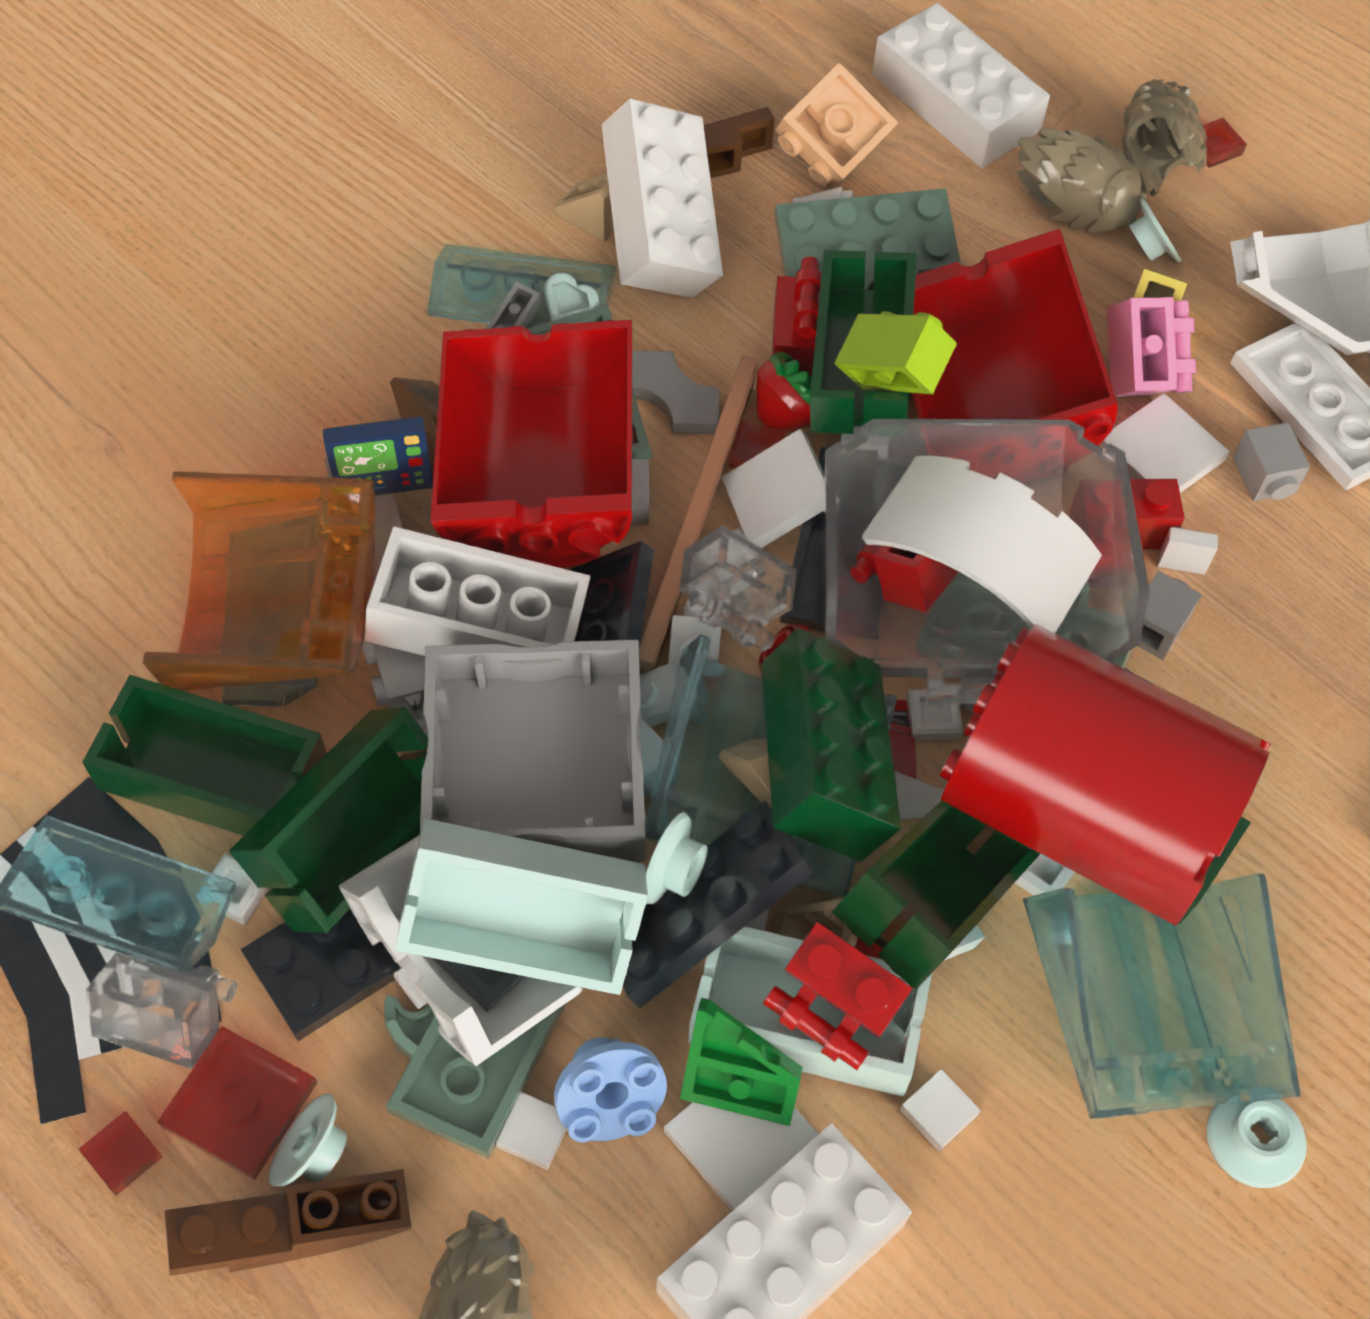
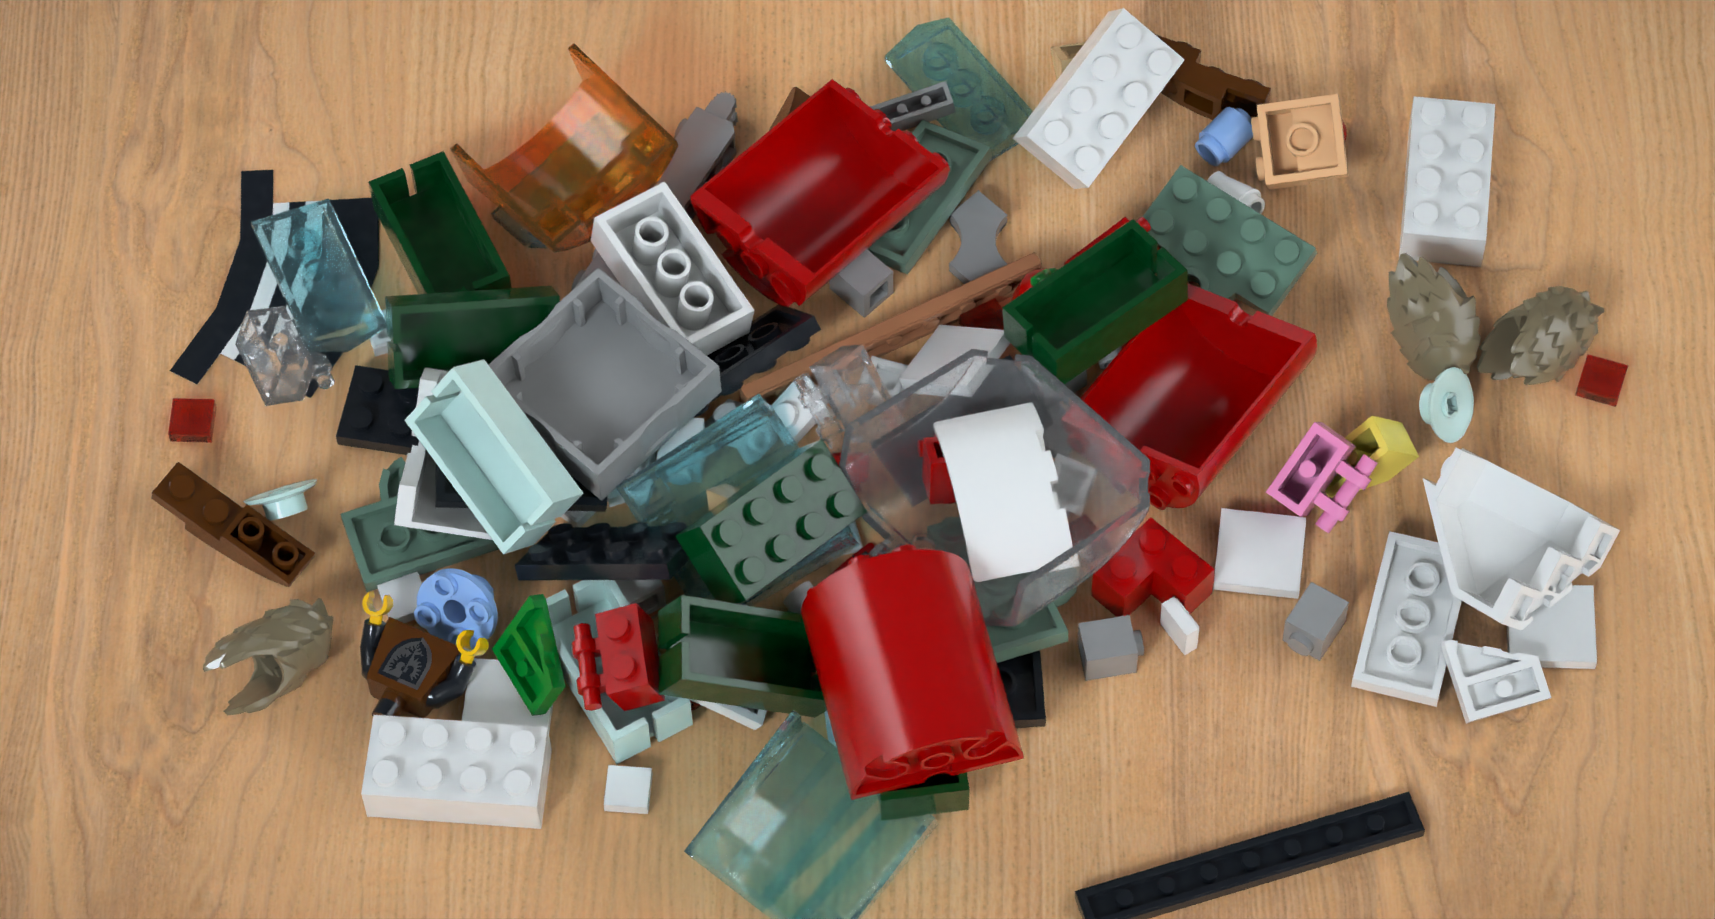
camera: 50 degrees right, 0 degrees up
(237, 1102) = (274, 447): clear red tile -> none
(385, 451) = (707, 128): dark blue tile -> none
(567, 298) = (975, 121): light aqua tile -> none
(623, 1190) = (410, 666): none -> torso
(675, 861) = (606, 507): light aqua piece -> none
(765, 171) = (1224, 136): none -> light blue brick
(896, 352) = (1074, 319): lime brick -> none

